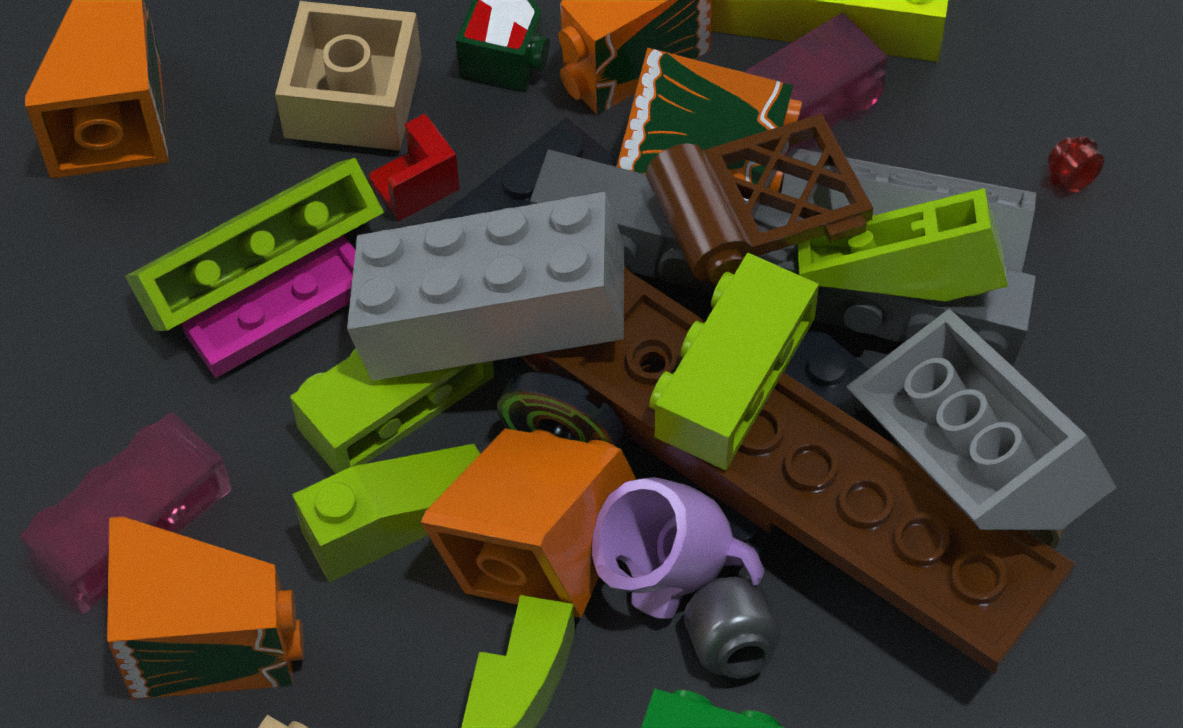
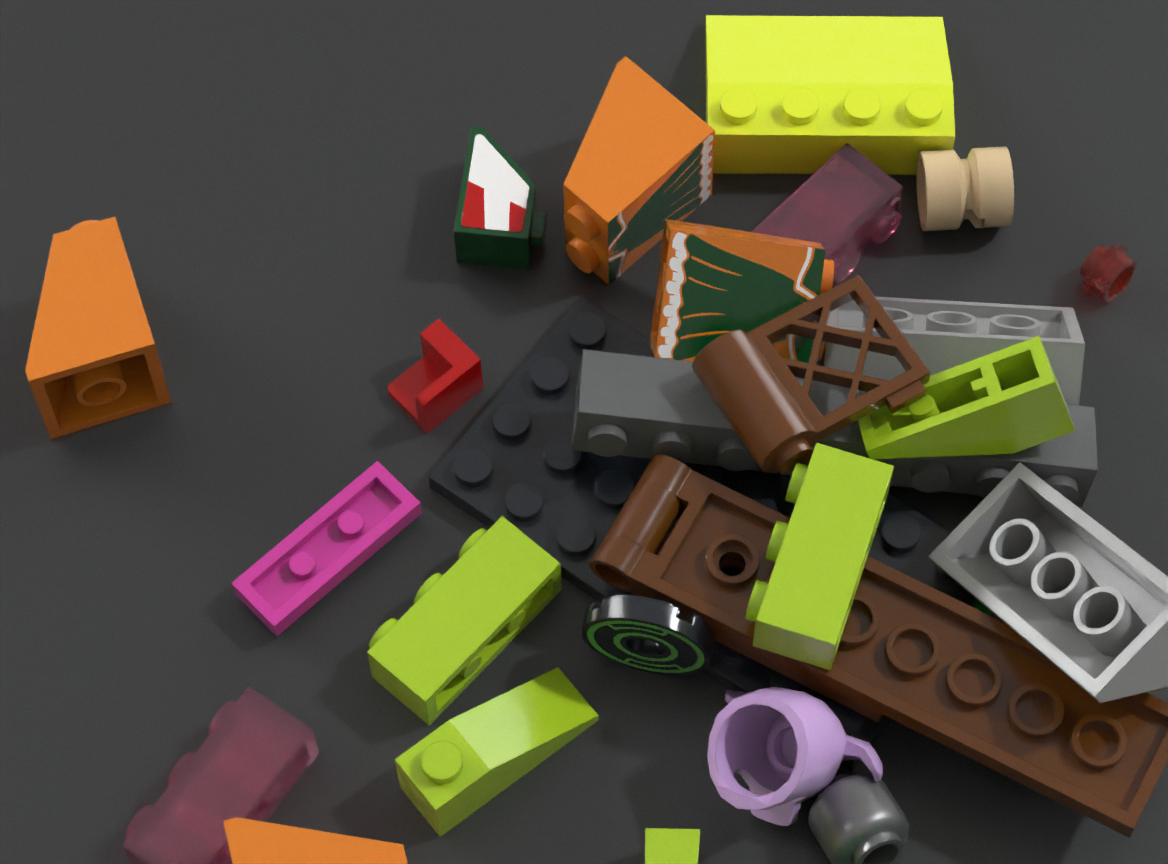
camera: 10 degrees left, 5 degrees up
(254, 244) = (290, 489): lime brick -> none
(349, 75) = (348, 284): tan brick -> none
(488, 287) = (554, 512): light grey brick -> none
(527, 517) = (639, 742): orange slope -> none
(949, 70) = (965, 188): none -> tan wheel

